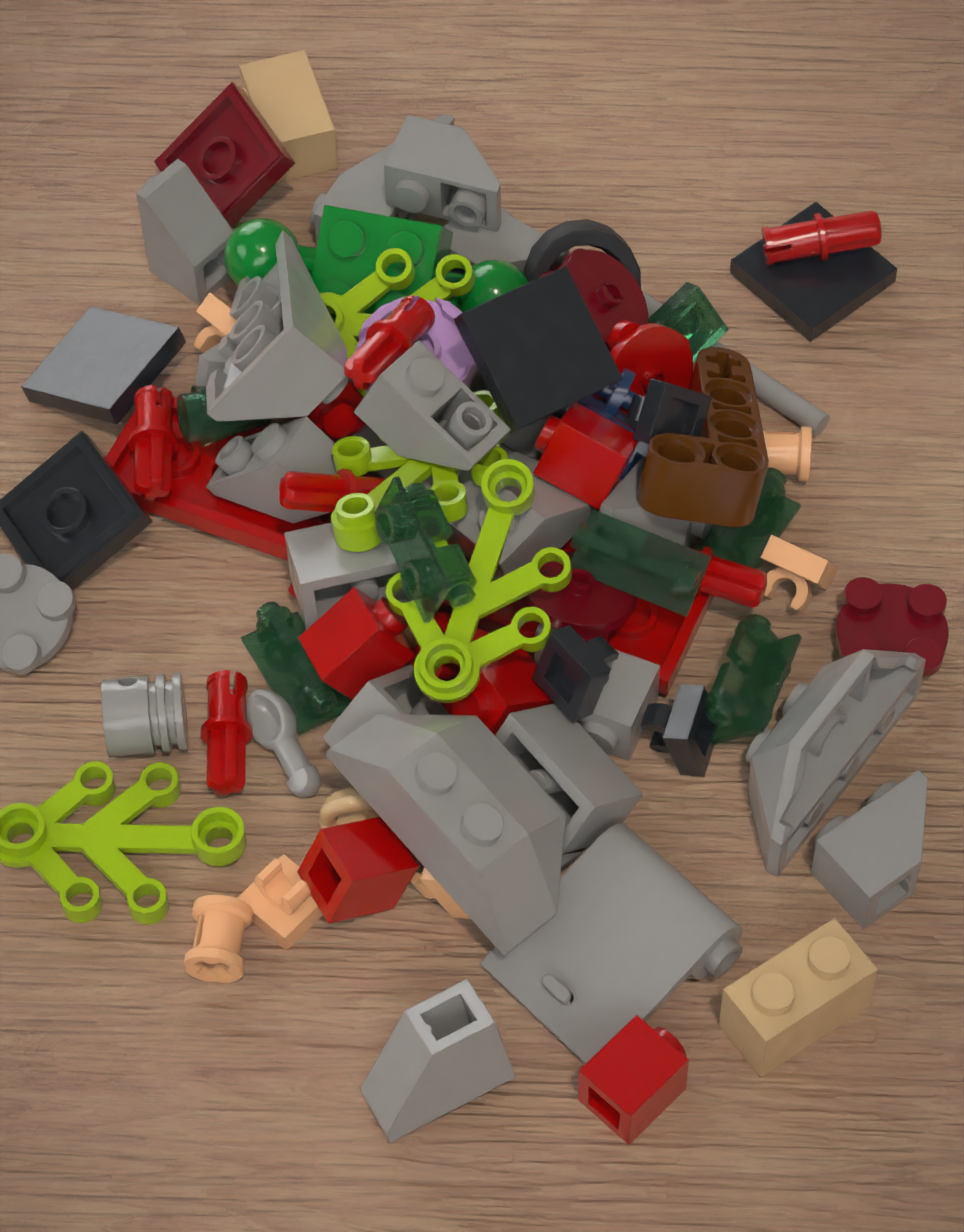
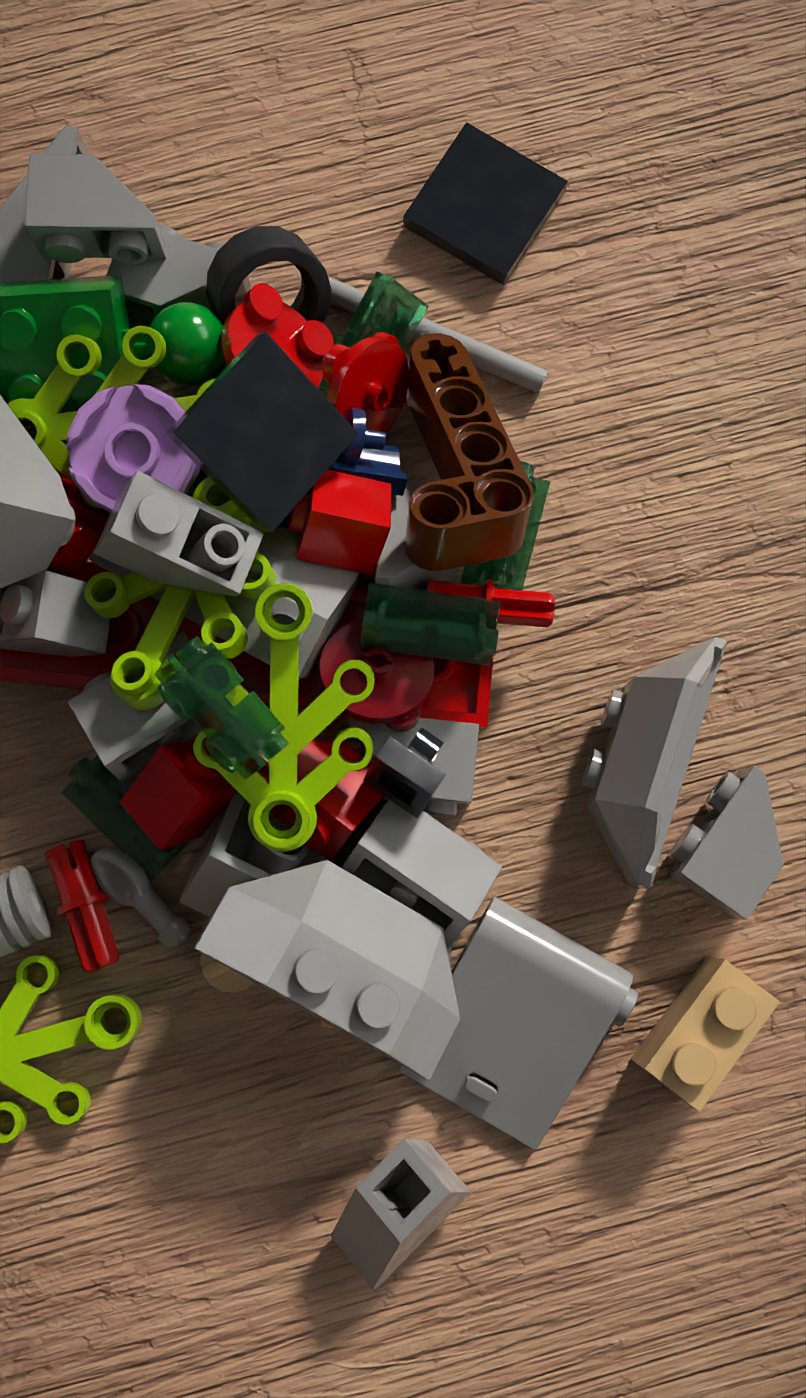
camera: 20 degrees left, 25 degrees up
(218, 938) = (149, 1134): light nougat bush -> none
(281, 902) = (197, 1064): light nougat tile -> none
(322, 491) = (101, 644): red axle -> none
(357, 869) = (255, 1033): red brick -> none
(389, 340) = (104, 468): red axle -> none
(606, 289) = (299, 317): dark red piece -> none
(633, 1078) = (580, 1159): red brick -> none
(668, 410) = (413, 455): black tile -> none
(682, 729) = (518, 772): black tile -> none
(752, 680) = (569, 706): clear green hinge -> none
(790, 451) = (528, 427): light nougat bush -> none
(797, 566) = (570, 556): light nougat tile -> none
(821, 236) = (488, 169): red axle -> none
(893, 620) = (675, 599): dark red piece -> none

